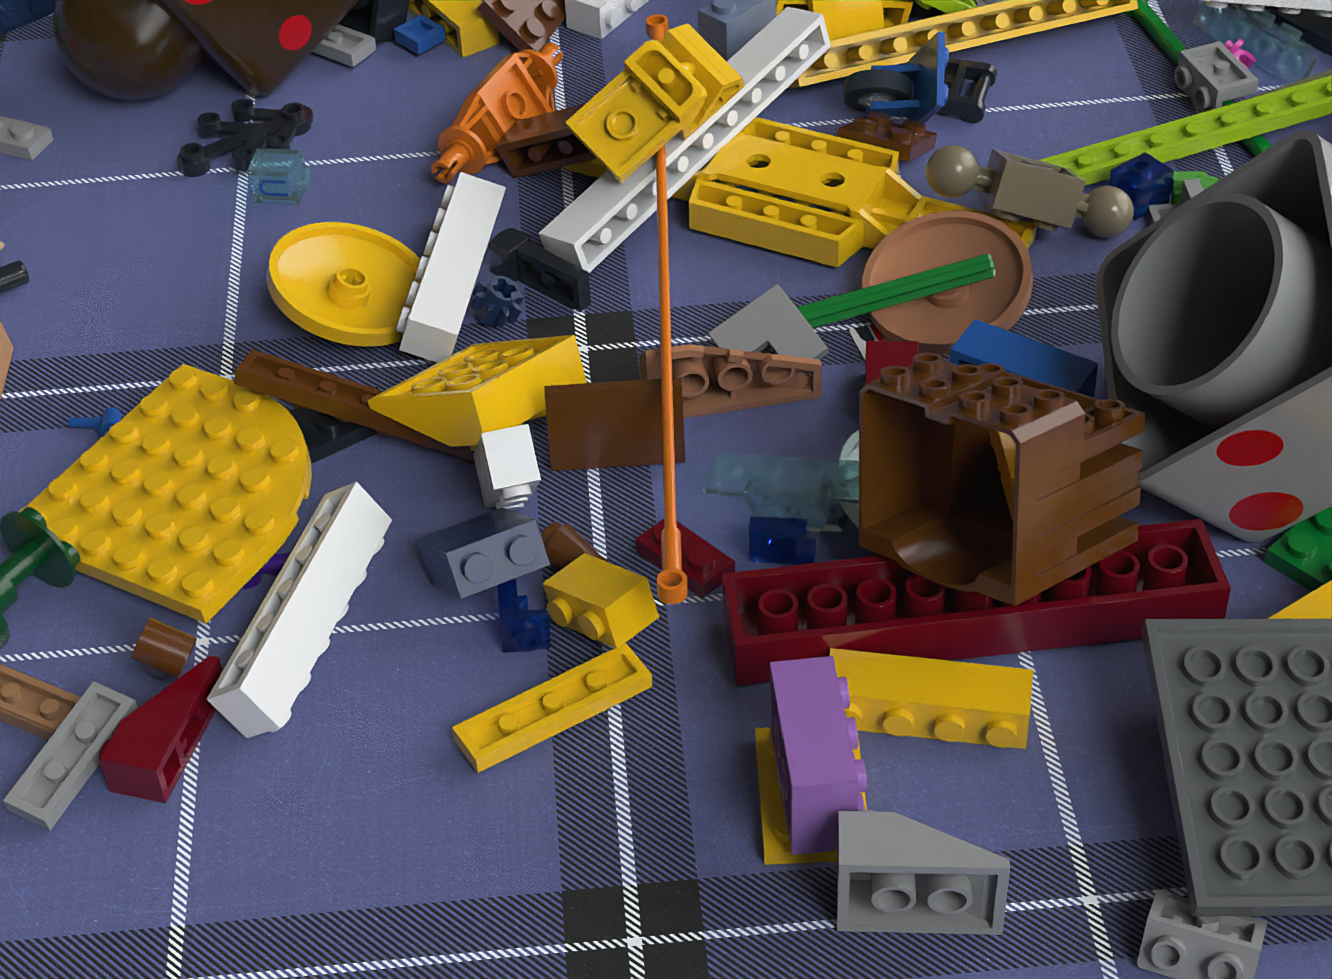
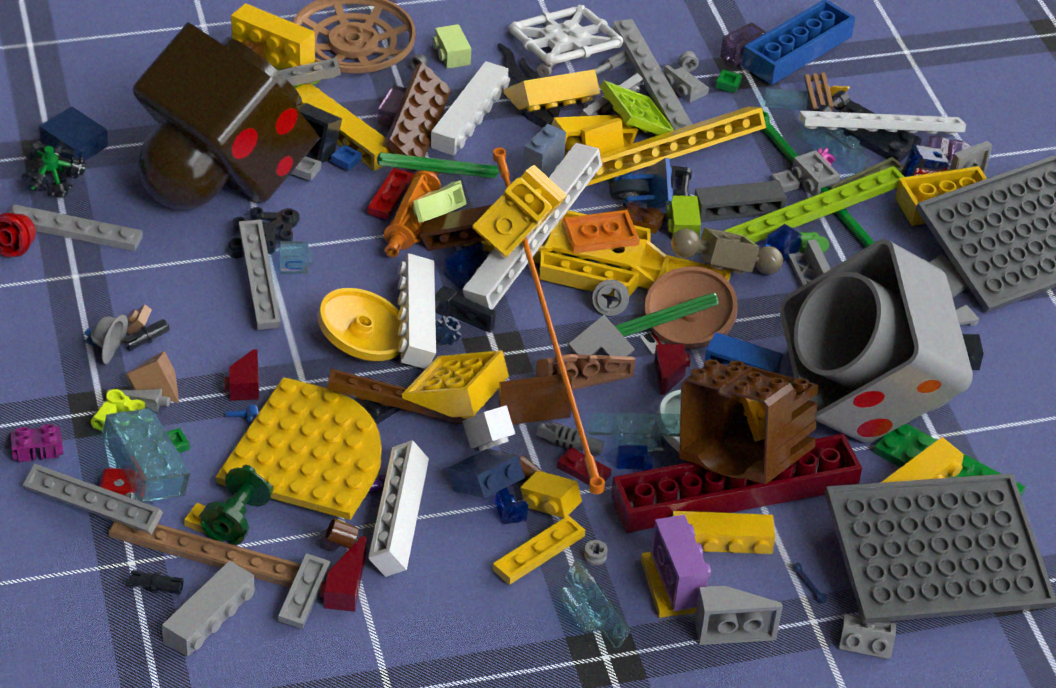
camera: 15 degrees left, 0 degrees up
(119, 361) = (244, 378): none -> dark red slope
(207, 201) = (259, 275): none -> light grey plate
(450, 100) = (390, 193): none -> red plate
(537, 94) = (439, 201): none -> yellowish green slope
(539, 40) = (437, 165): none -> green axle
(556, 191) = (463, 264): none -> clear blue bracket
(623, 833) = (591, 605): none -> clear light blue bracket
(646, 493) = (567, 437): none -> dark grey hinge
(669, 733) = (595, 559): none -> light grey bush
(786, 268) = (615, 307): none -> light grey gear
(806, 150) = (600, 231): none -> orange tile
(969, 127) = (683, 214): none -> lime brick
(1069, 116) = (740, 200): none -> dark grey brick
(1113, 849) = (821, 597): none -> dark blue hinge
(1160, 92) = (786, 179): none -> light grey tile

